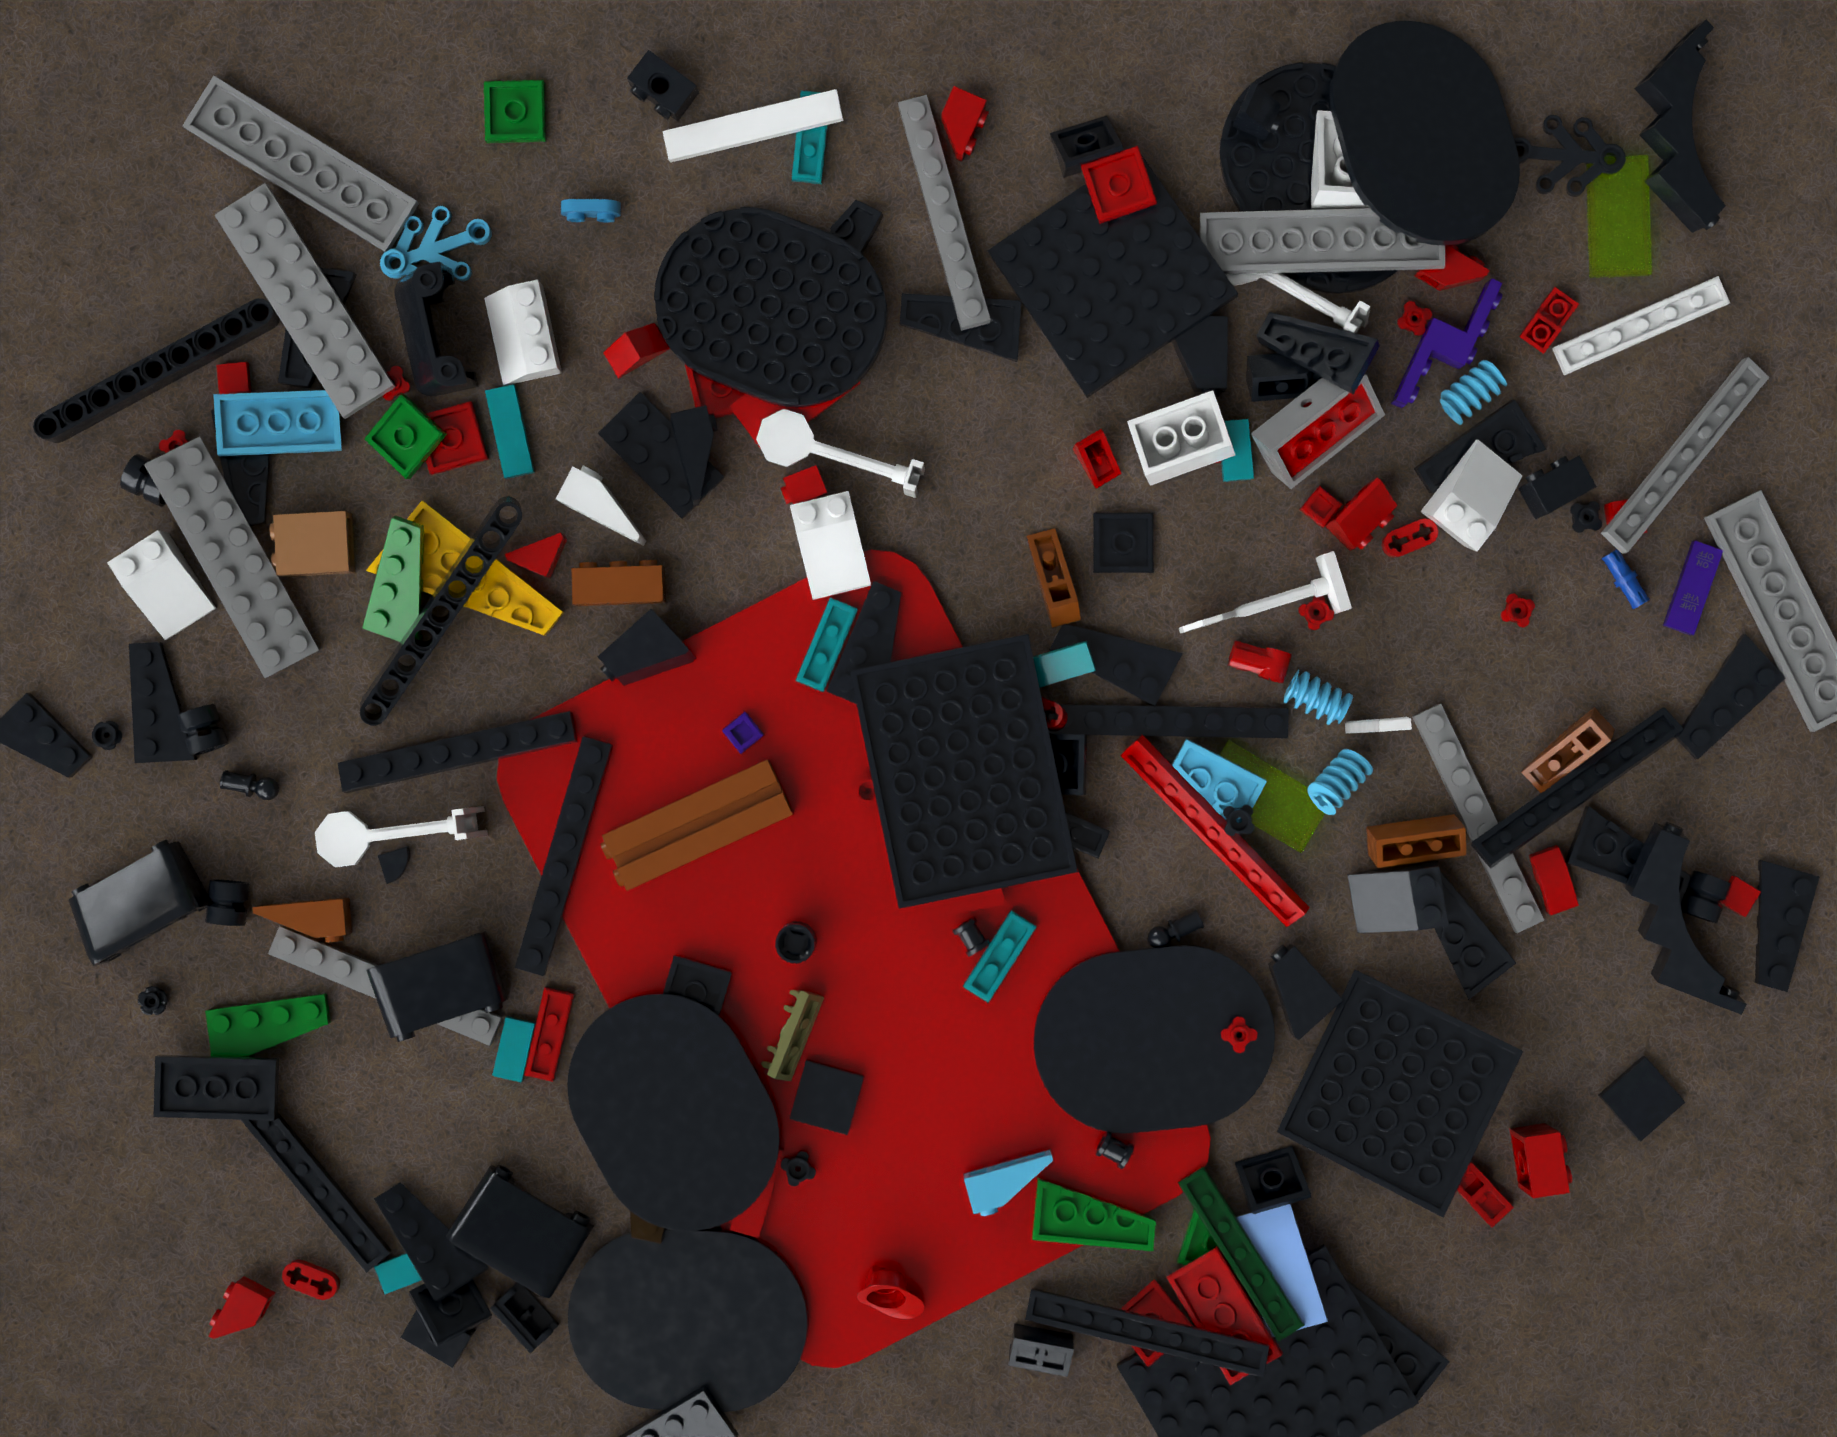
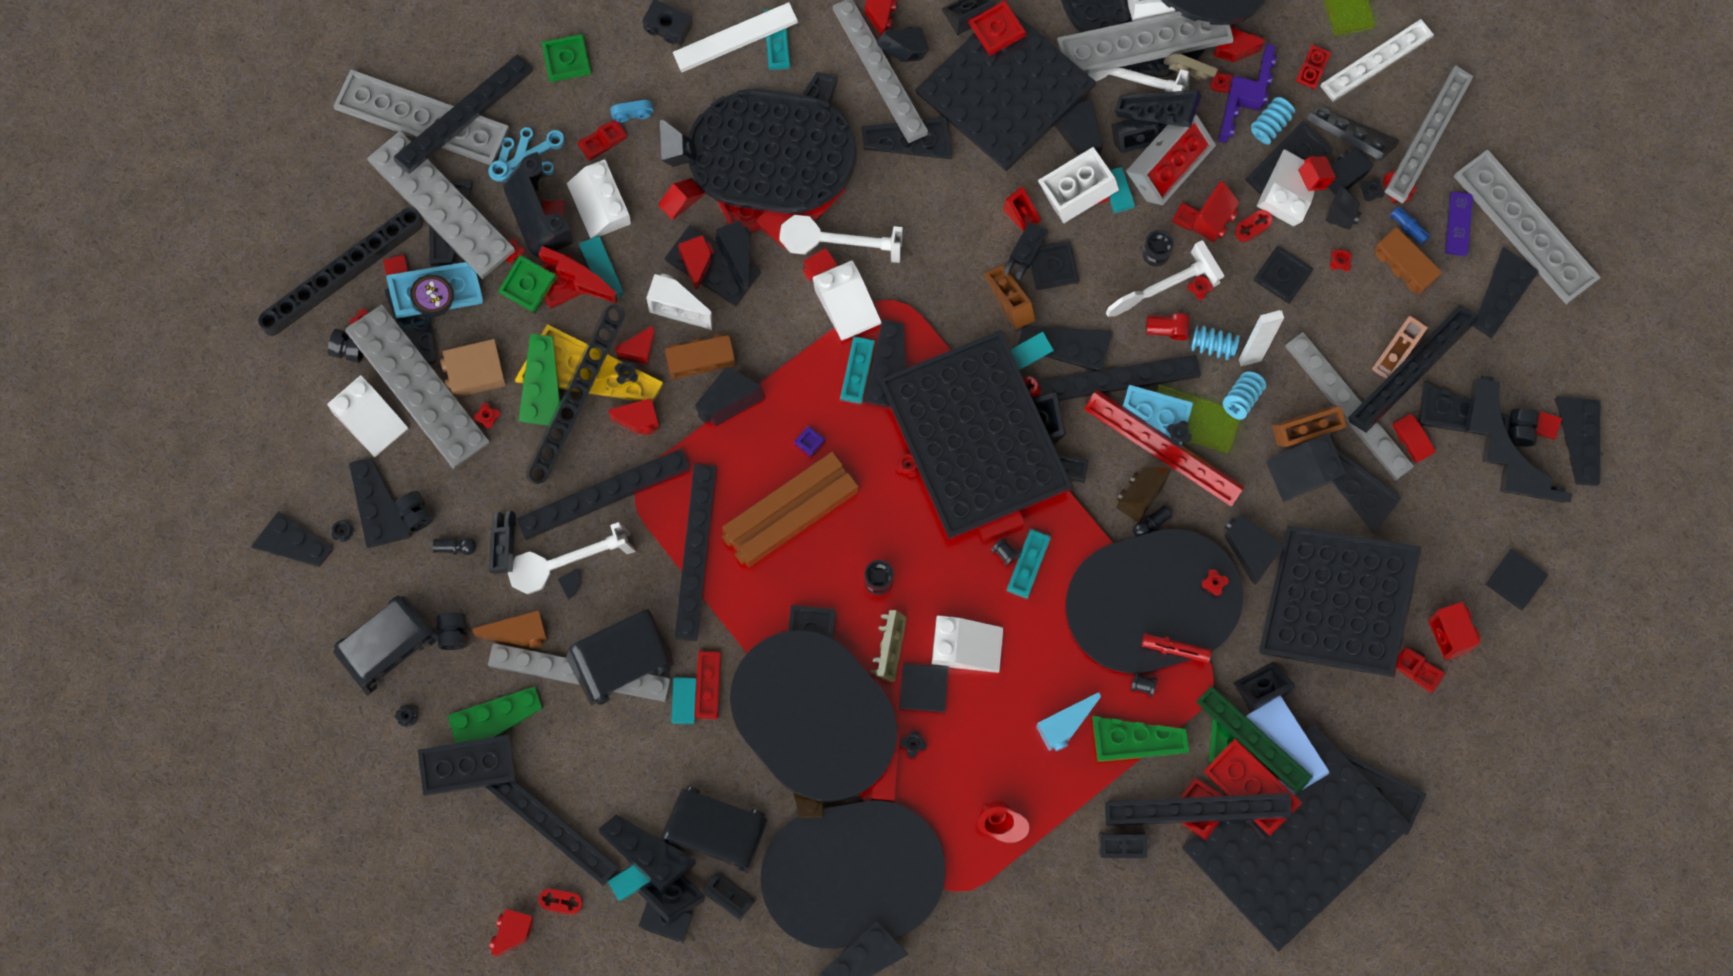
camera: 15 degrees left, 15 degrees down
(269, 434) = (431, 295): none -> tile
(313, 792) = (502, 543): none -> black hinge
(330, 612) = (486, 421): none -> red plate
(356, 173) = (463, 114): none -> black plate
(459, 336) = (554, 206): none -> red tile
(480, 446) = (583, 278): none -> red slope
(507, 587) = (626, 366): none -> black plate
(520, 654) = (636, 417): none -> red slope
(543, 244) = (603, 140): none -> red slope
(637, 449) = (696, 258): none -> red slope
(640, 271) = (675, 145): none -> slope
(894, 1052) = (966, 644): none -> white slope
(986, 182) = (904, 44): none -> black slope
(1091, 515) = (1026, 249): none -> black hinge
(1157, 1108) = (1166, 645): none -> red pin
(1171, 891) = (1142, 492): none -> dark brown slope
(1270, 548) = (1157, 248): none -> black wheel
(1376, 295) = (1196, 69): none -> dark tan plate
(1434, 615) = (1283, 274): none -> black tile
(1514, 486) = (1316, 173): none -> red brick
(1539, 542) = (1344, 210): none -> black slope
(1585, 434) = (1359, 135): none -> black wing
(1608, 632) = (1407, 261): none -> dark orange brick

